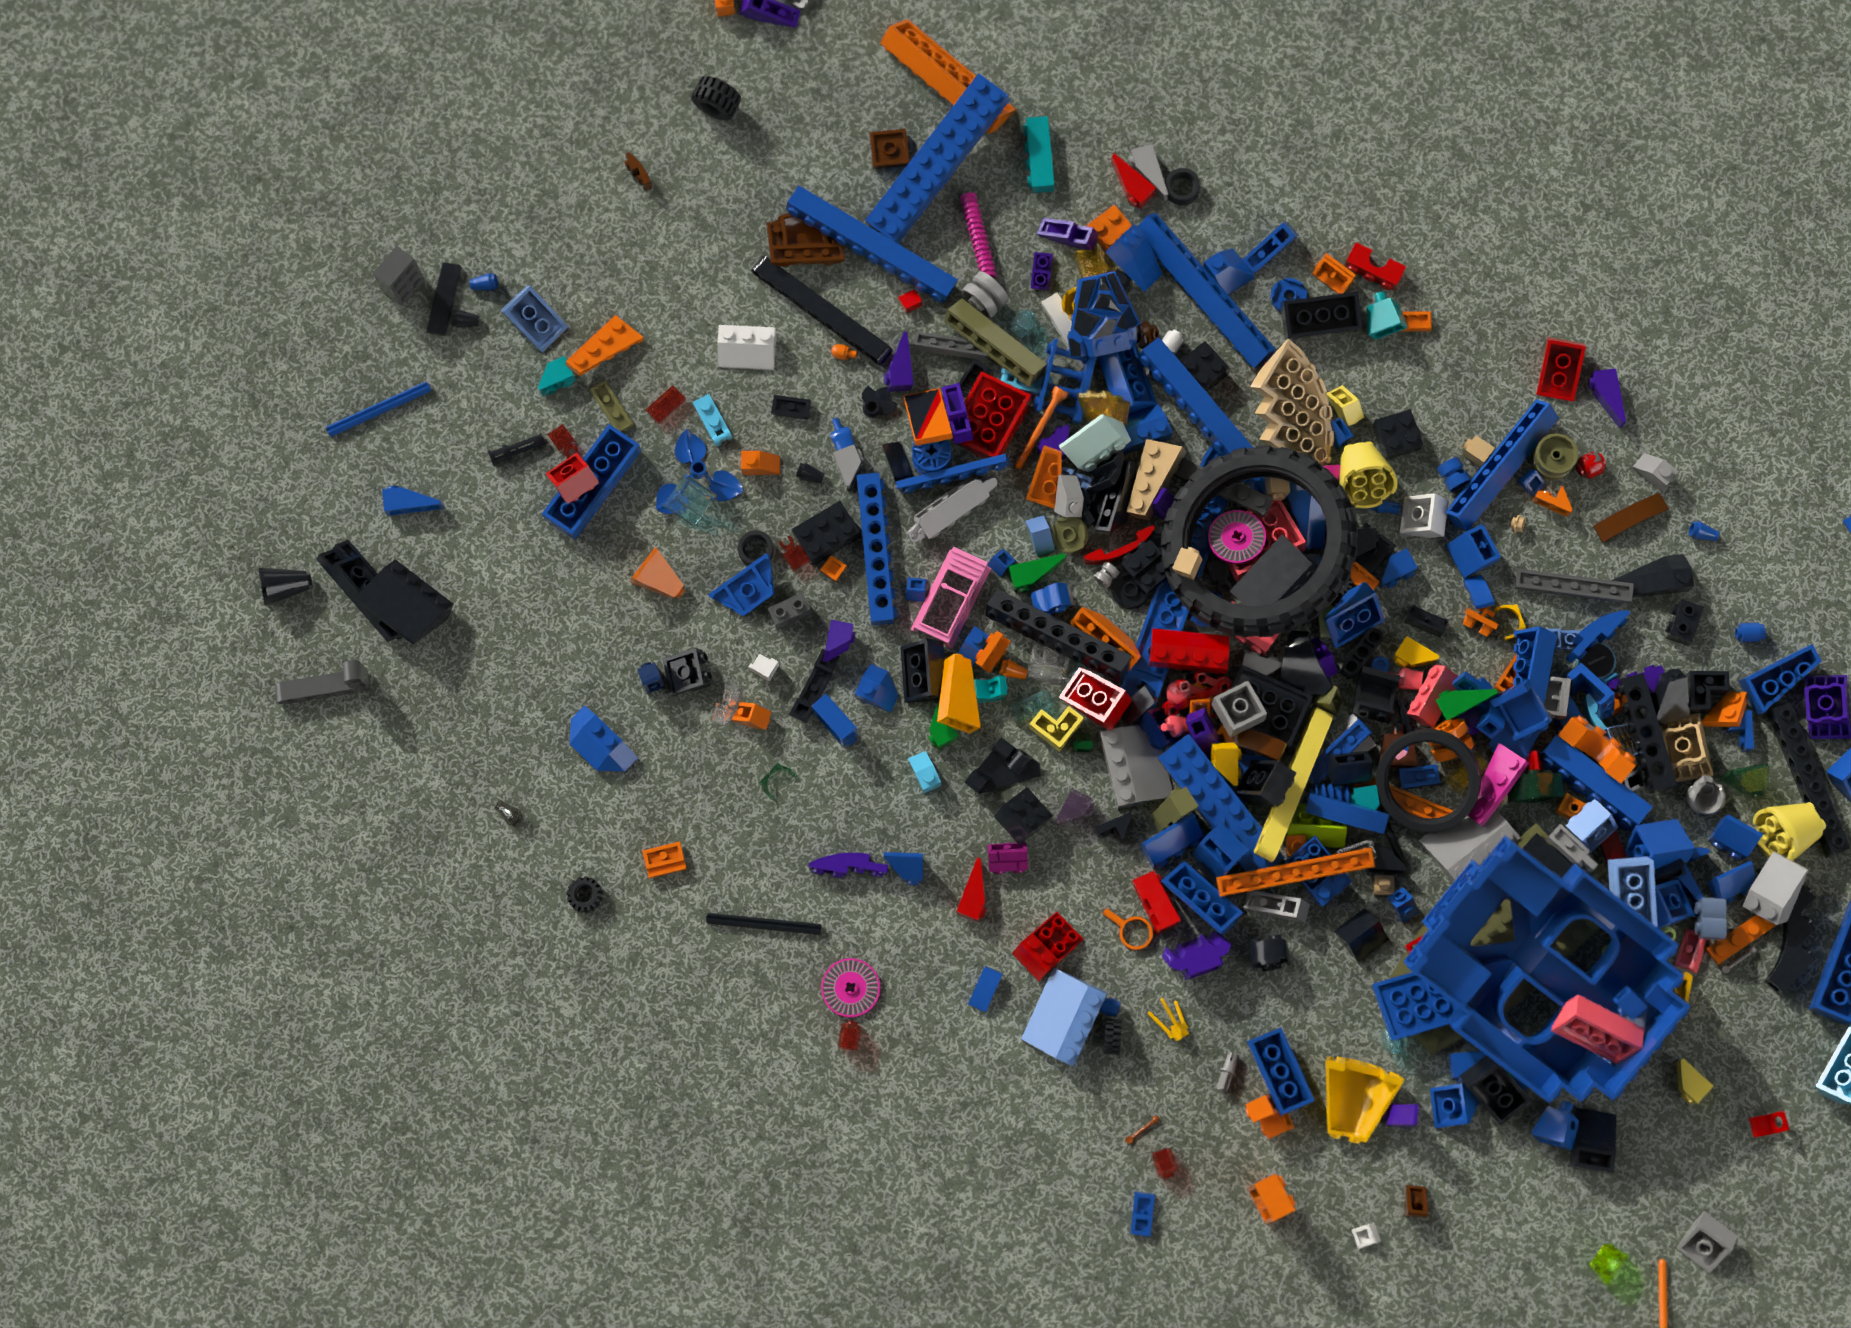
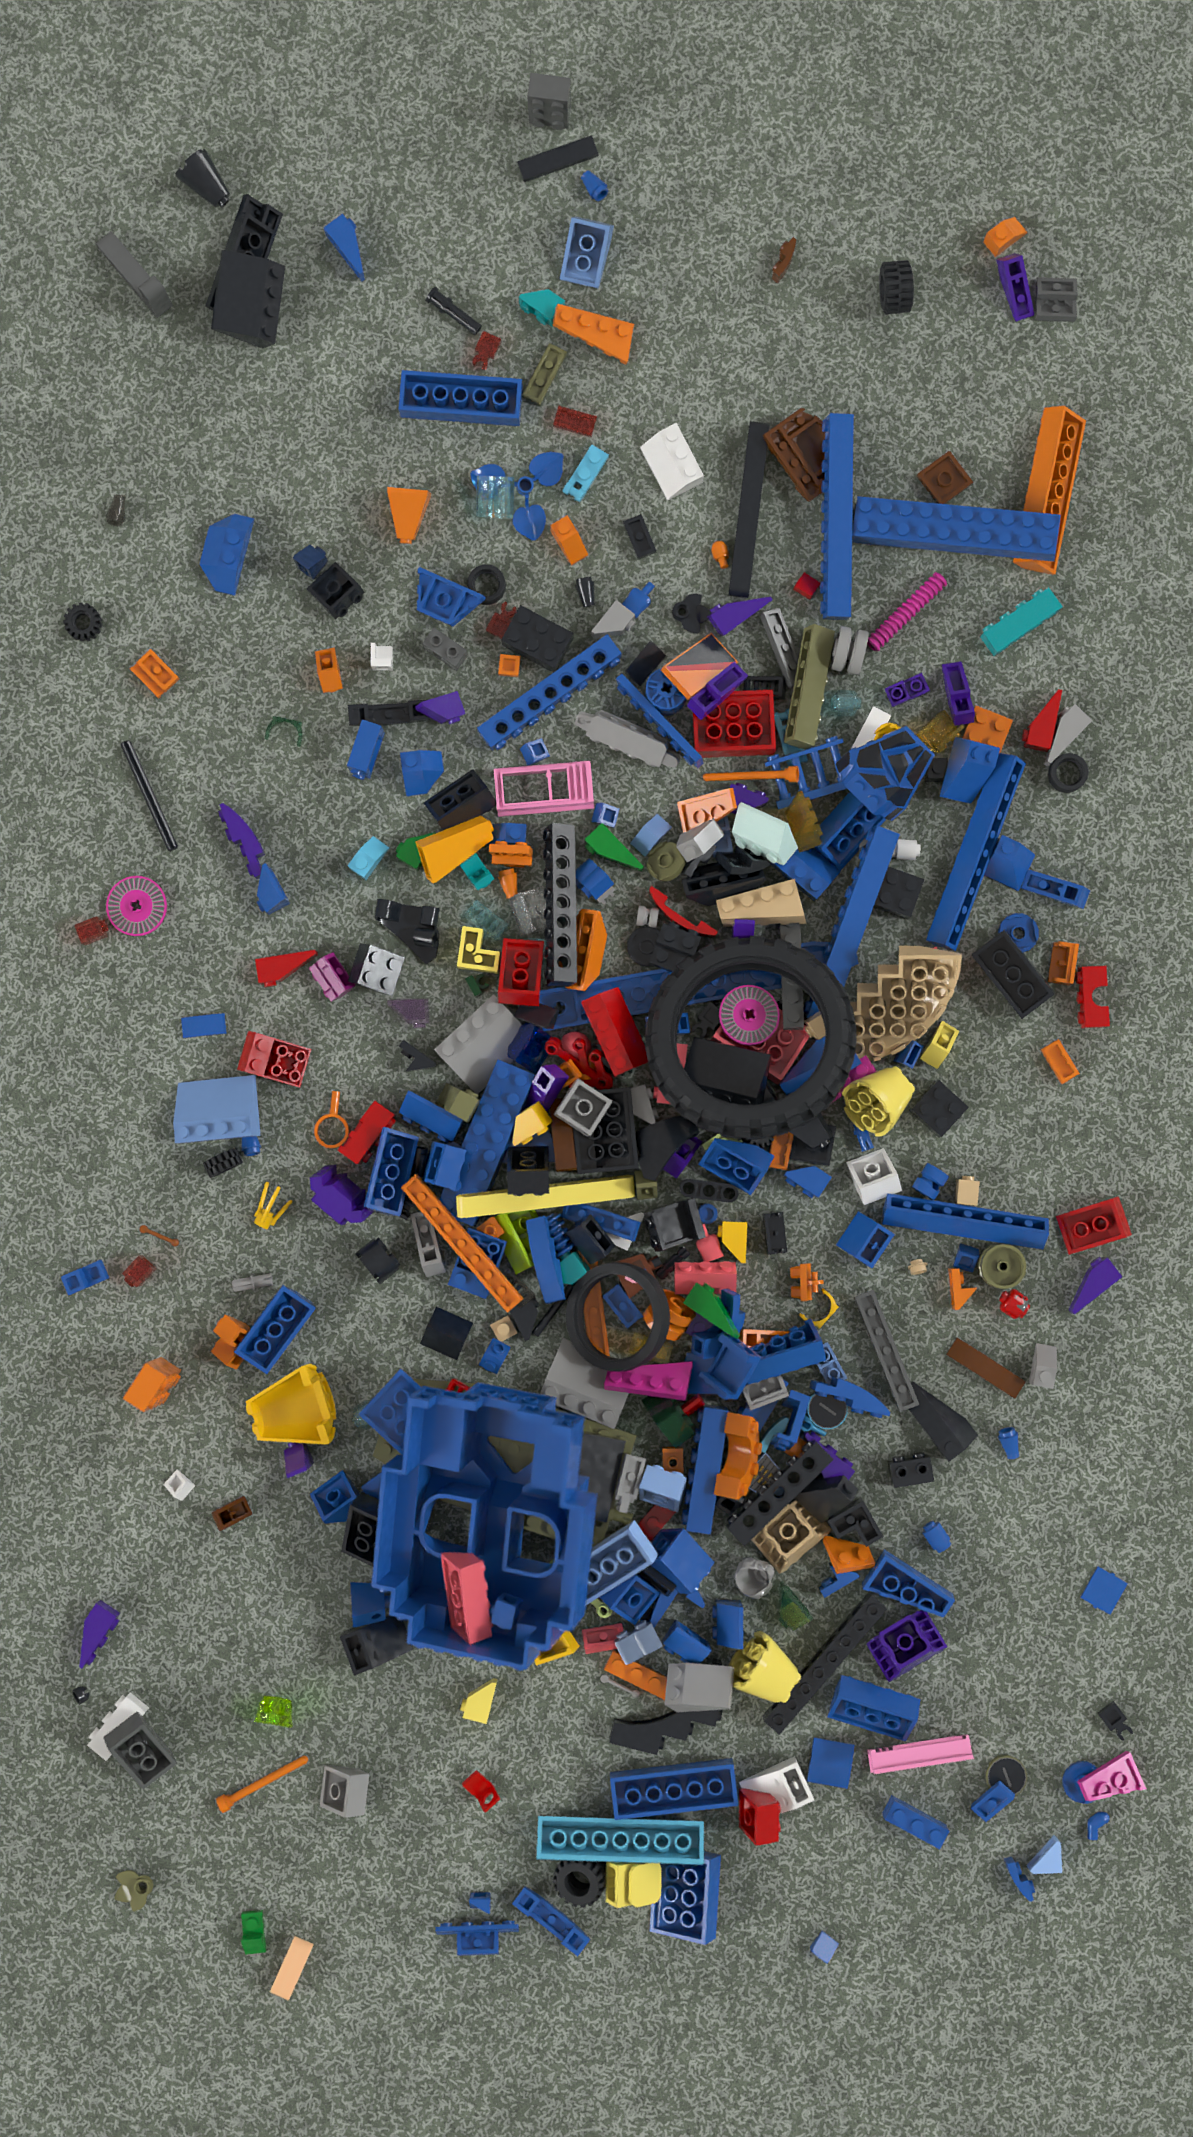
camera: 55 degrees right, 10 degrees up
(378, 408) = (419, 164): blue axle -> none
(464, 319) = (548, 188): black cone -> none
(572, 478) = (448, 376): red slope -> none
(725, 711) = (321, 646): clear slope -> none
(1149, 334) = (902, 824): reddish brown plate -> none
(1176, 726) = (538, 1057): coral piece -> none
(1187, 562) = (689, 983): tan brick -> none
(1384, 317) = (1047, 1033): teal torso -> none
(1479, 592) = (828, 1266): blue slope -> none

